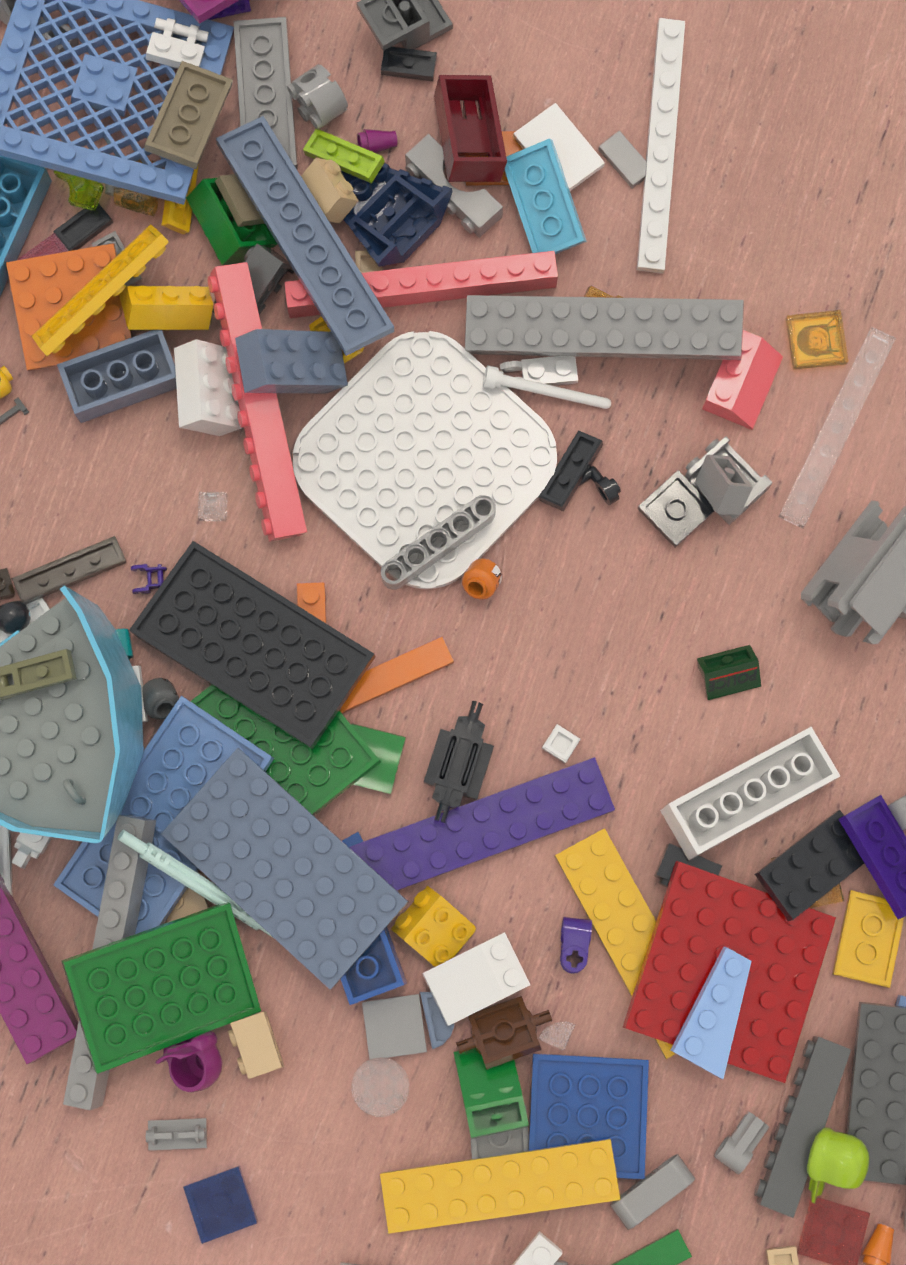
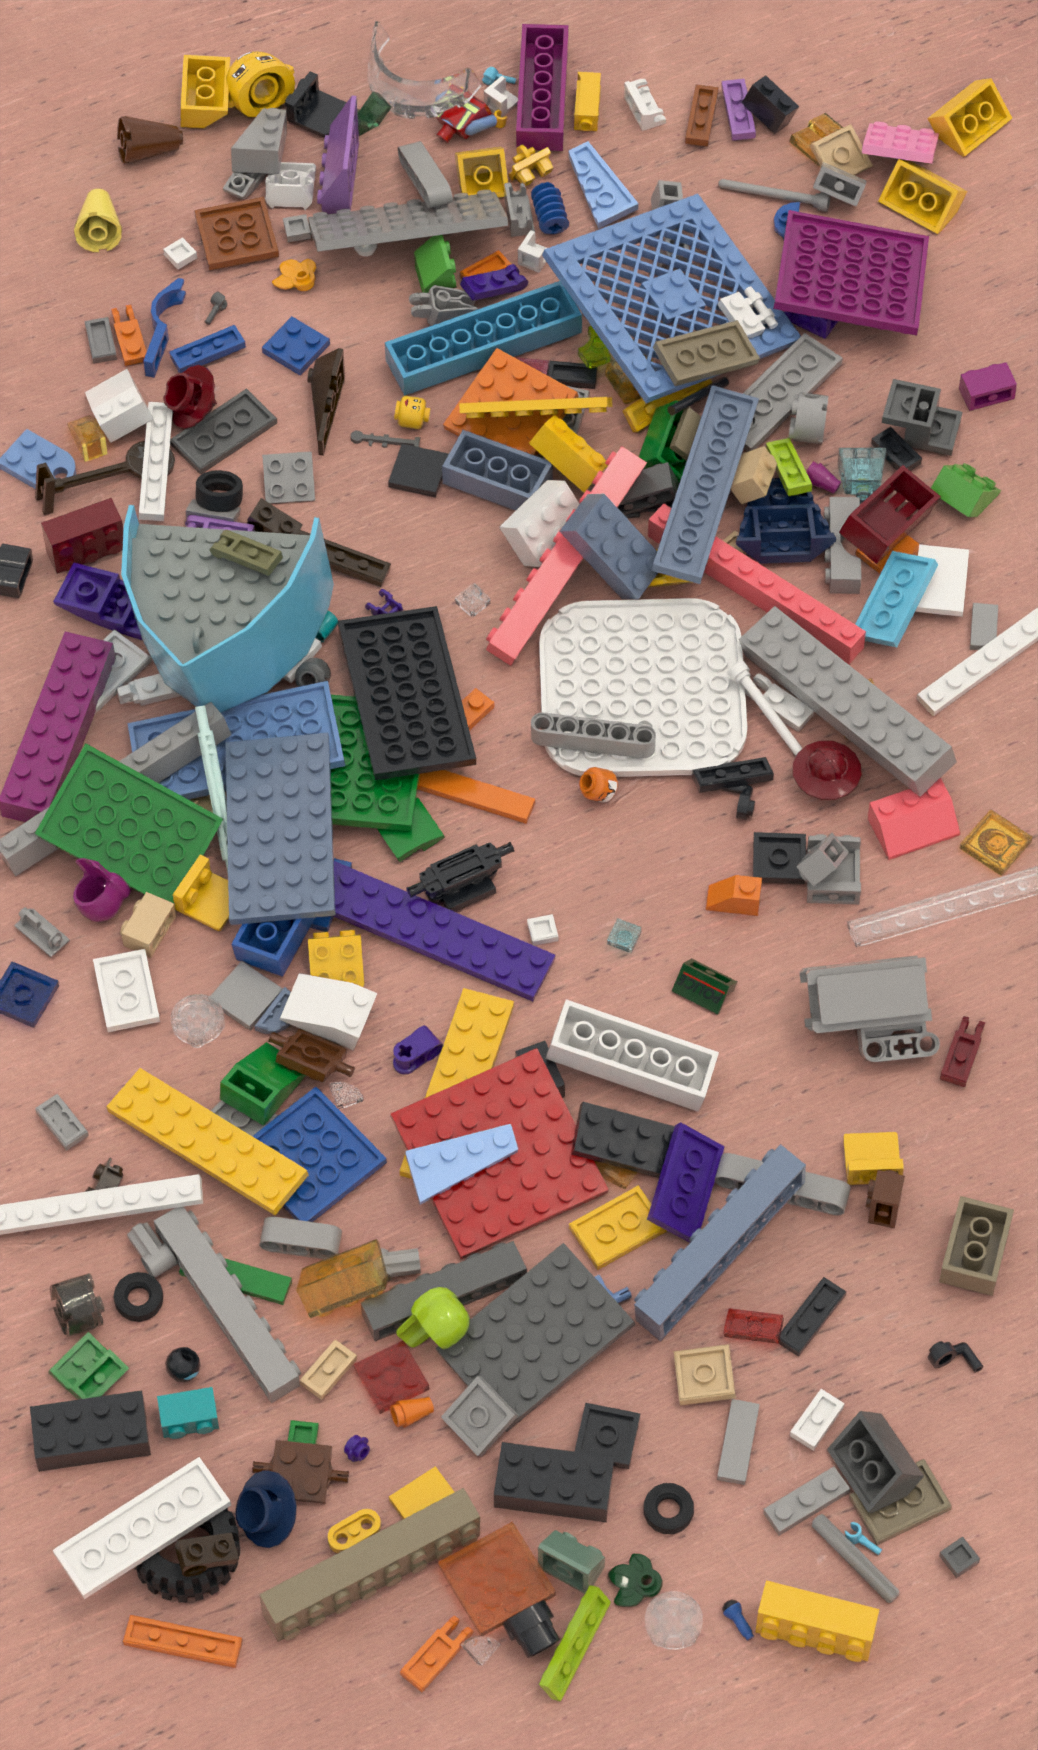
camera: 45 degrees right, 20 degrees down
(48, 429) = (418, 470): none -> black tile
(212, 171) = (696, 397): none -> black bar
(277, 975) = (203, 895): none -> yellow bracket
(298, 1118) = (126, 990): none -> white plate
(402, 107) = (861, 470): none -> clear light blue torso
(496, 50) = (965, 489): none -> bright green slope
(629, 689) = (624, 935): none -> clear light blue plate
(642, 400) = (827, 770): none -> dark red helmet
(677, 574) = (735, 895): none -> orange slope
(725, 1198) = (343, 1279): none -> clear yellow slope

